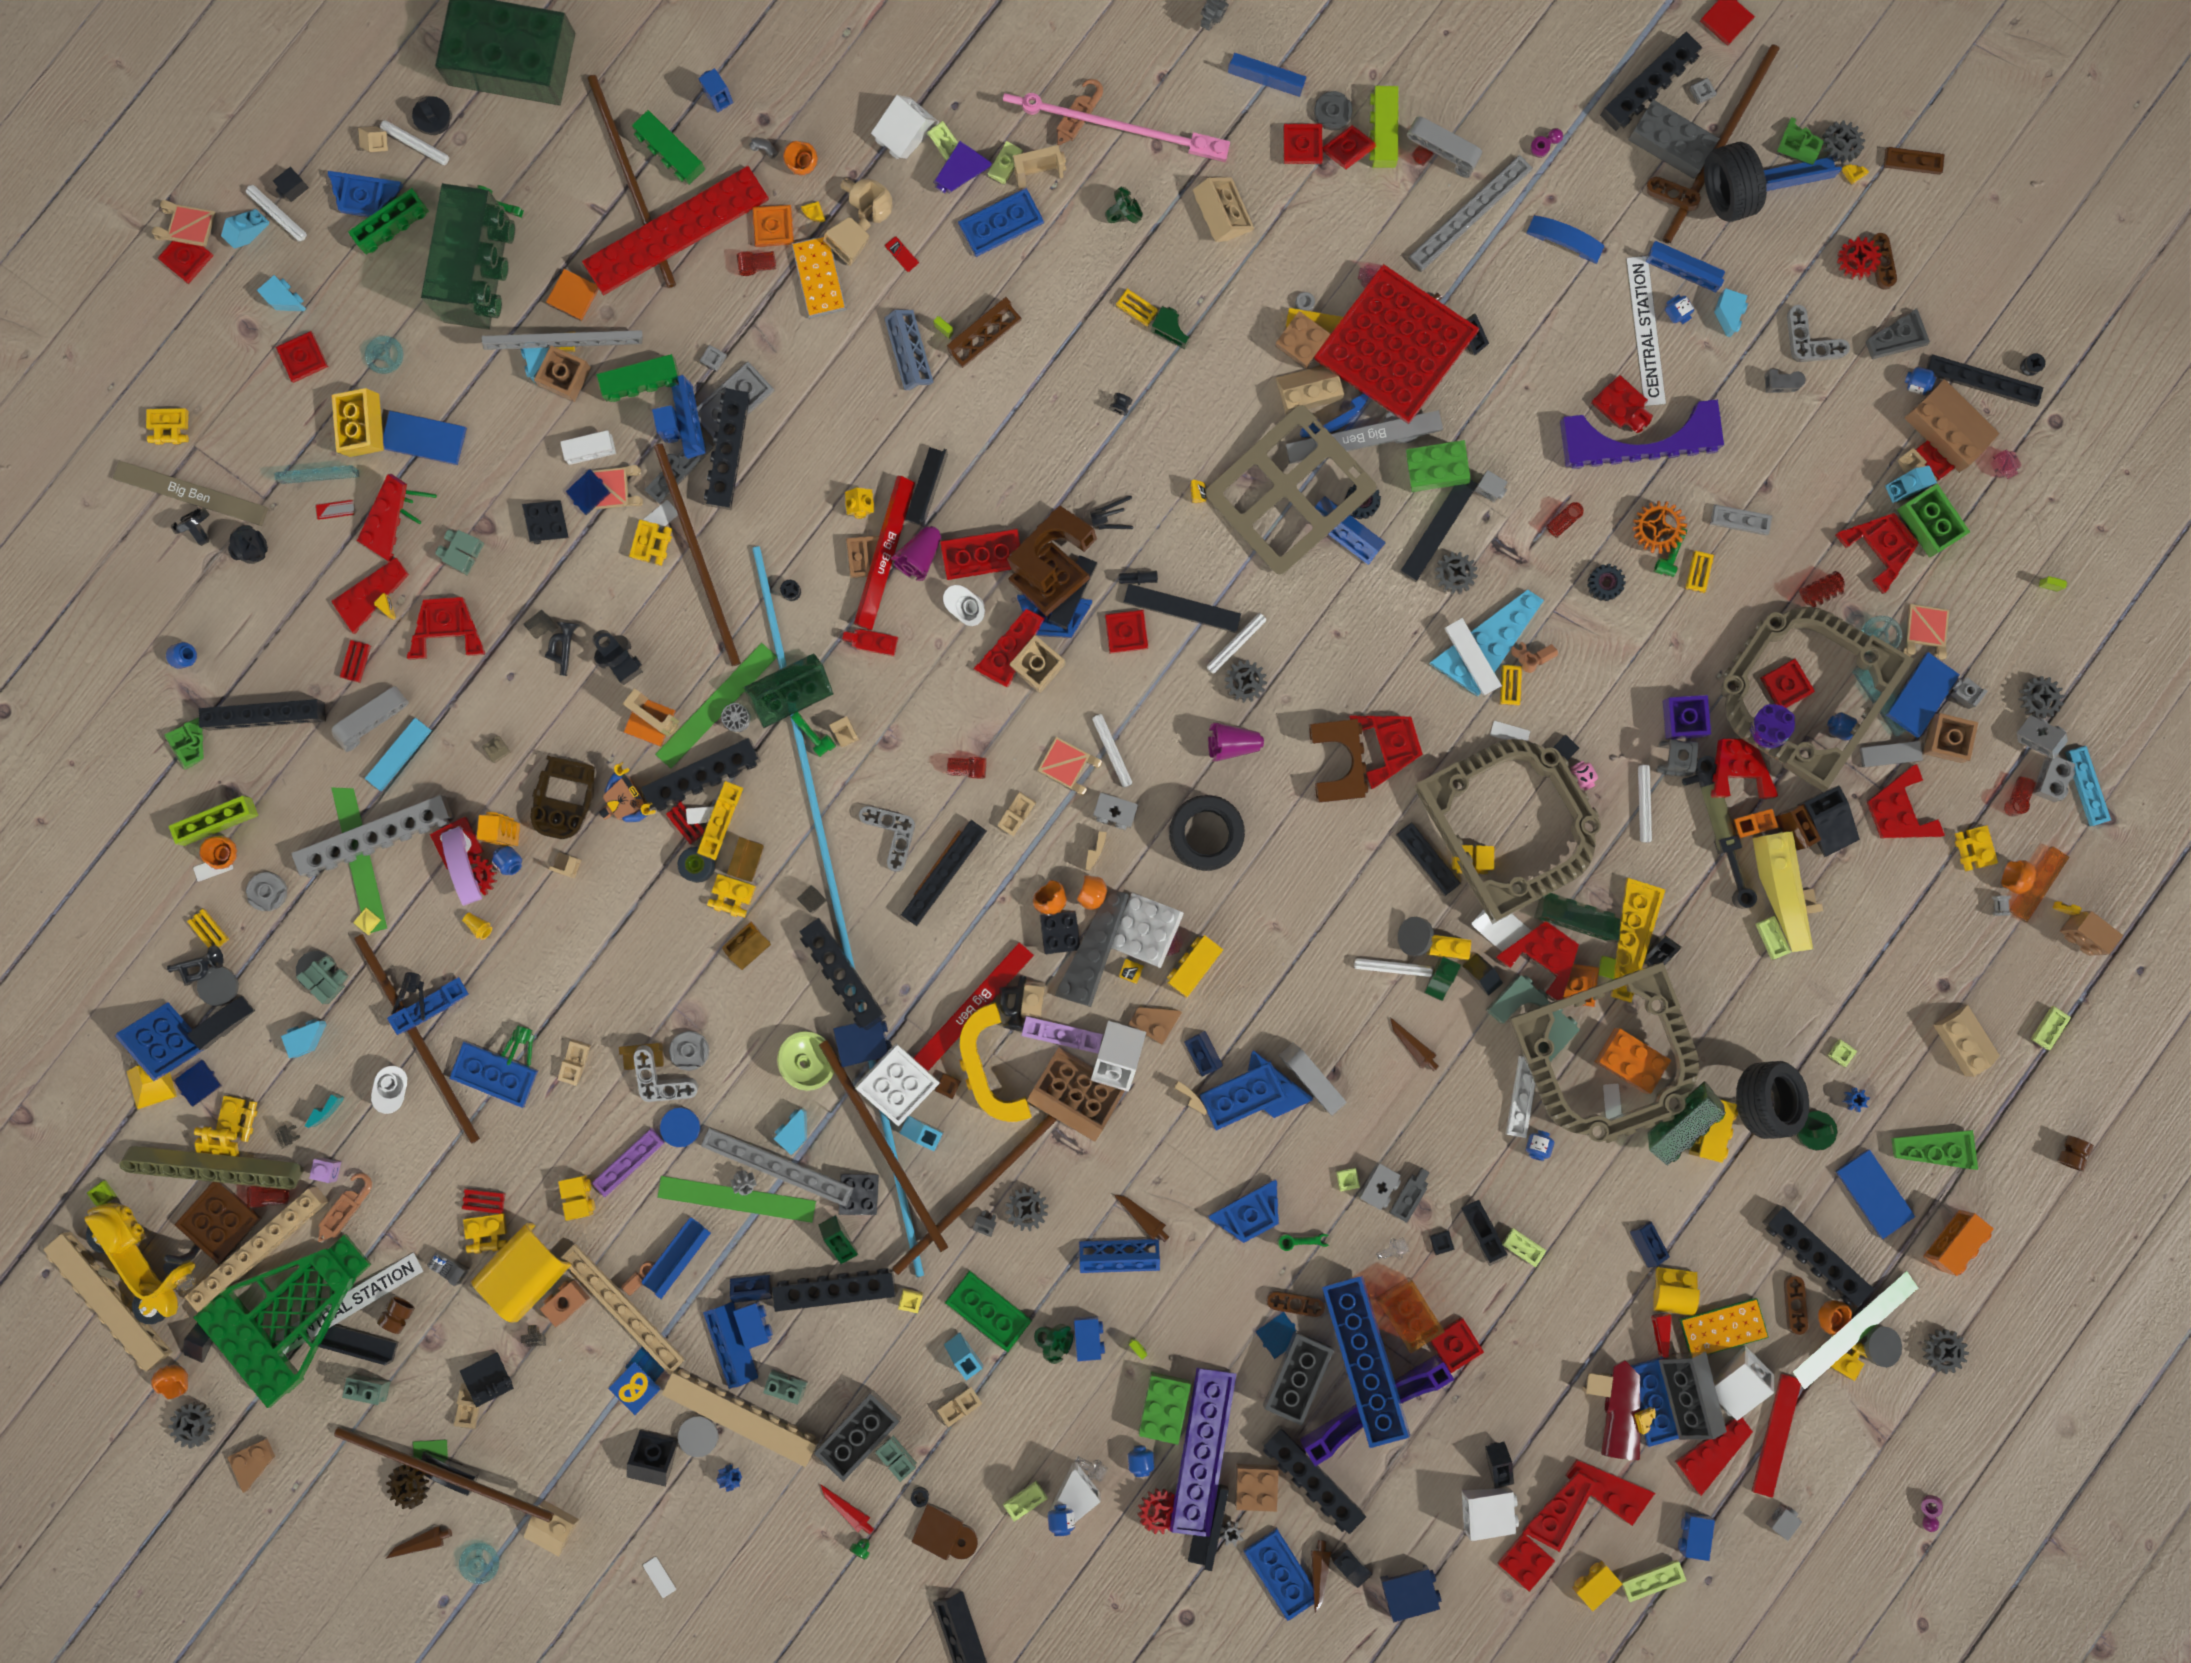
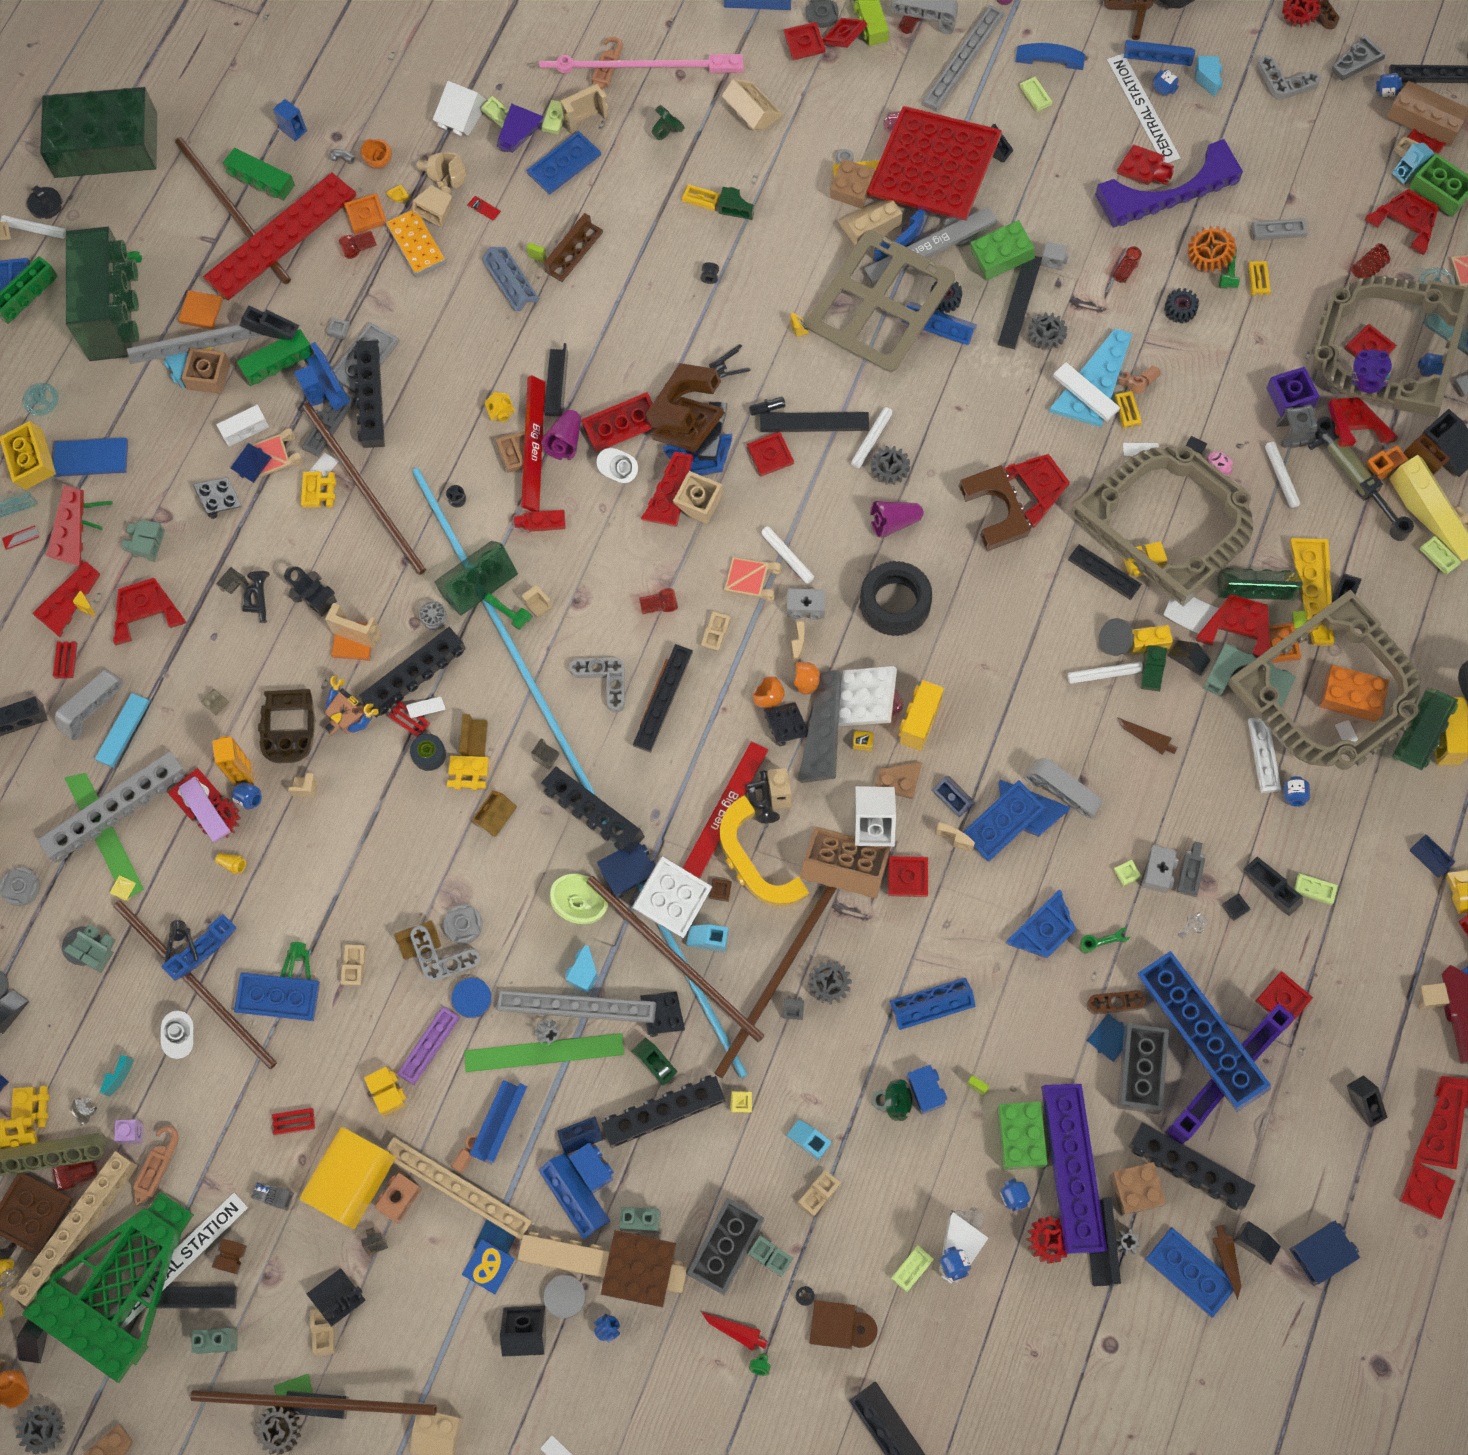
camera: 10 degrees left, 15 degrees down
(303, 1040) = (82, 1012): medium azure slope -> none
(485, 1226) = (300, 1146): yellow plate -> none
(639, 341) = (268, 324): none -> black slope
(713, 707) = (410, 614): bright green sticker -> none
(719, 820) = (440, 705): yellow slope -> none
(771, 1435) = (638, 1269): none -> reddish brown plate
(988, 1311) = (820, 1092): green tile -> none
(1062, 1034) = (815, 813): lavender slope -> none
(1133, 1124) = (907, 876): none -> red plate
(1148, 1222) = (952, 965): reddish brown bar -> none
(1410, 1315) = (1230, 979): clear orange brick -> none
(1489, 1513) = (1373, 1149): white slope -> none
(1535, 281) = (1035, 94): none -> yellowish green tile
(1783, 382) = (1275, 115): flat silver leg -> none

